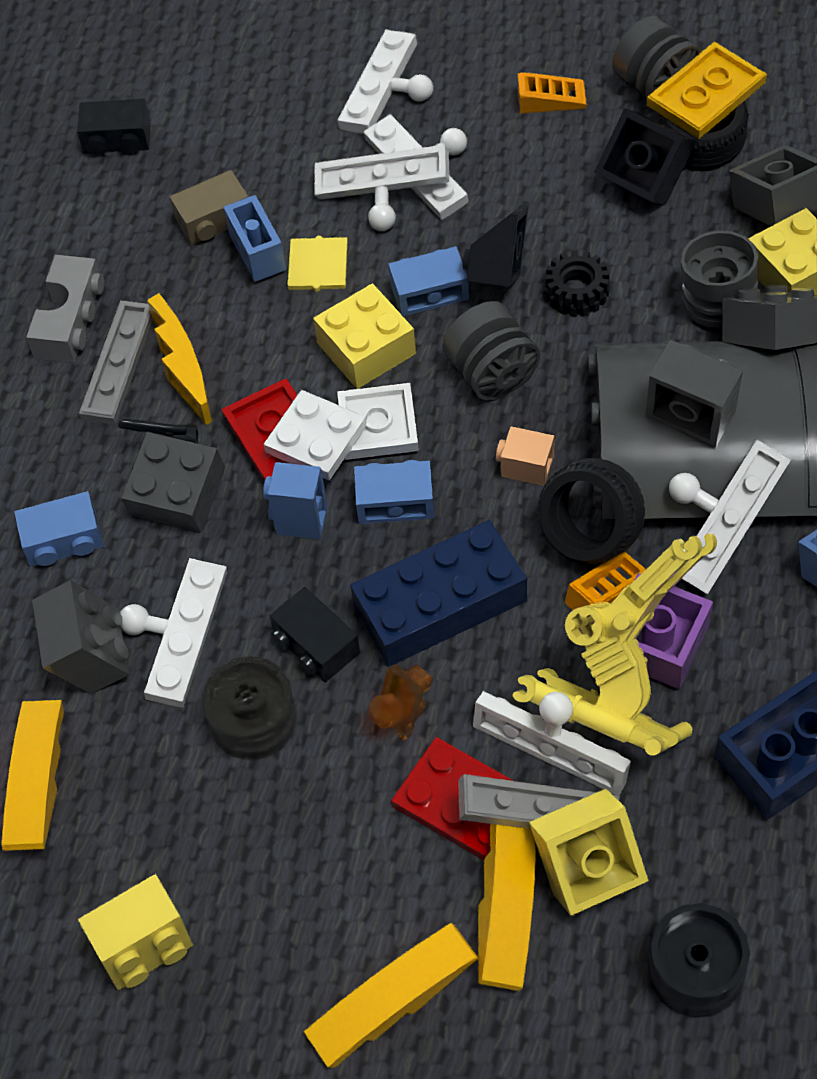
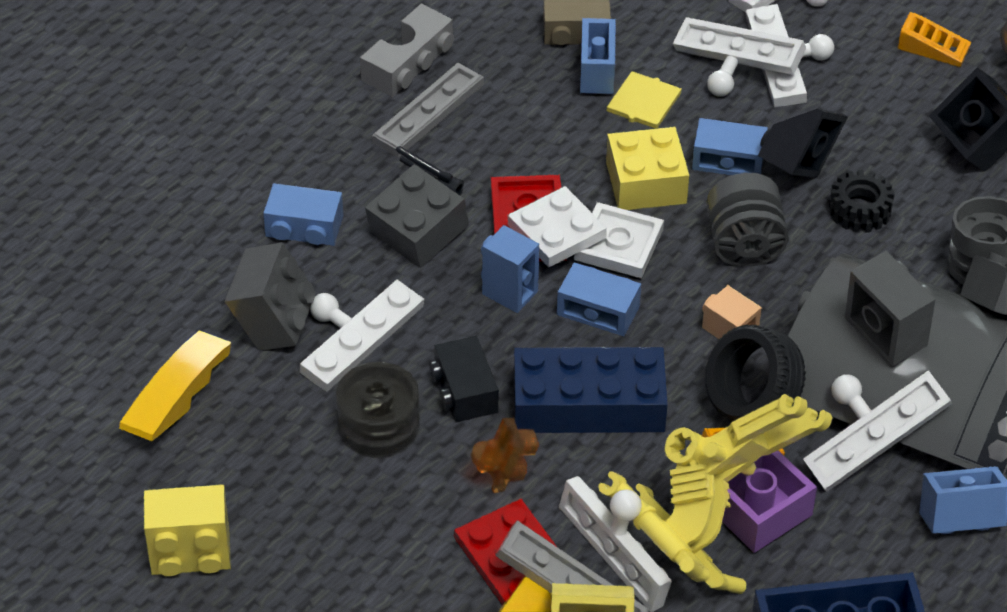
camera: 20 degrees right, 10 degrees down
(180, 359) = (479, 126): yellow slope -> none

